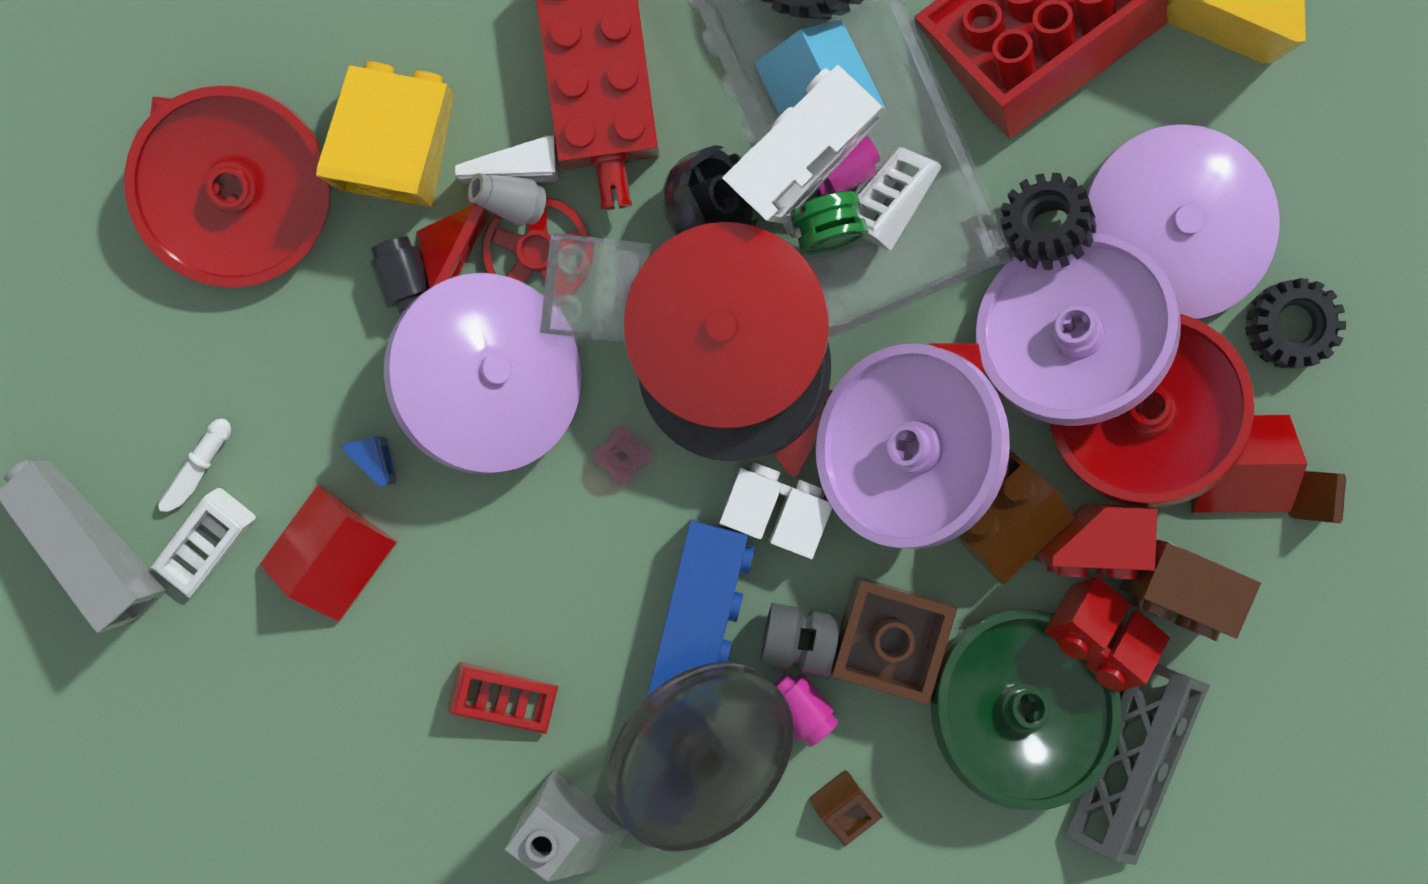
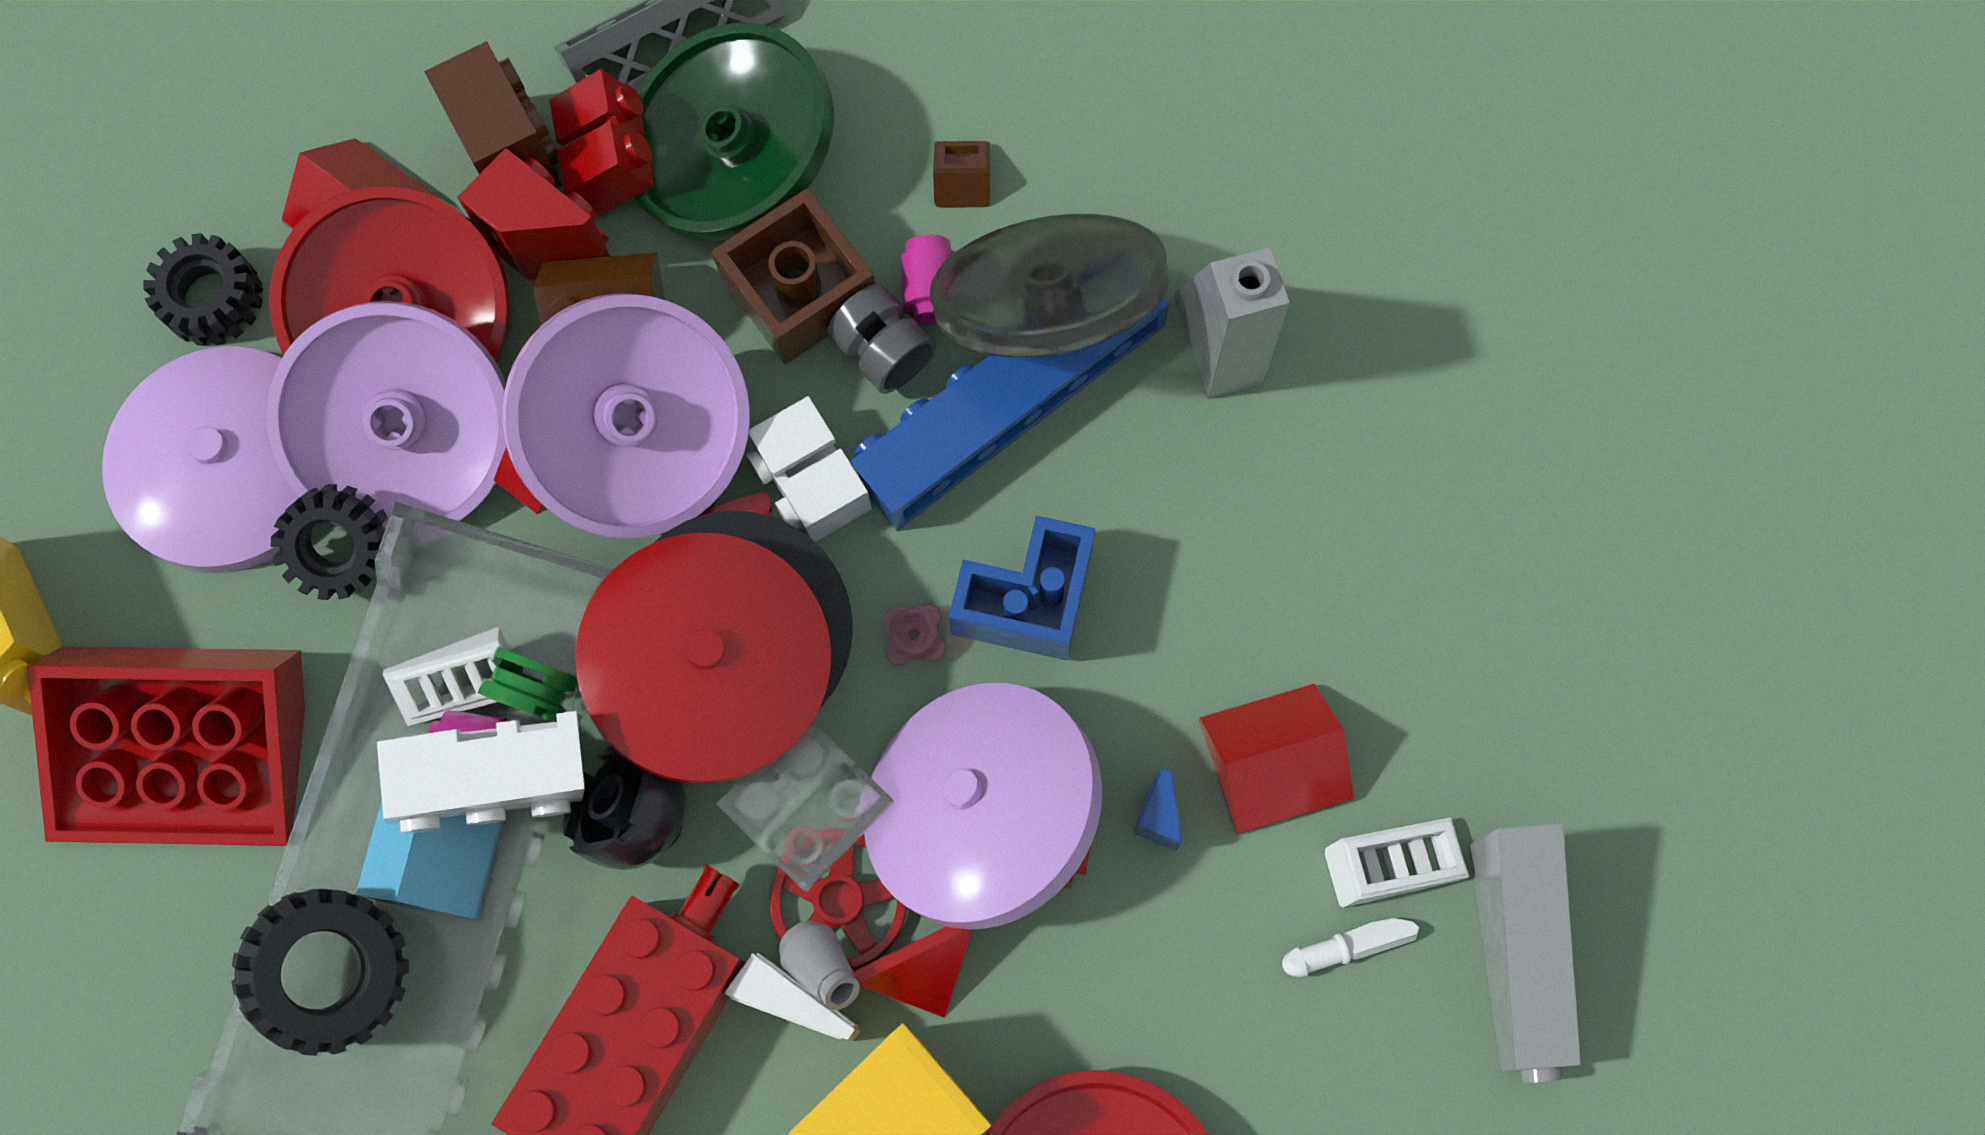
camera: 135 degrees left, 15 degrees down
(399, 272) = (991, 976): black brick -> none
(478, 711) = (1232, 522): red slope -> none
(547, 538) = (1031, 607): none -> blue brick
(1320, 497) = (316, 123): reddish brown slope -> none

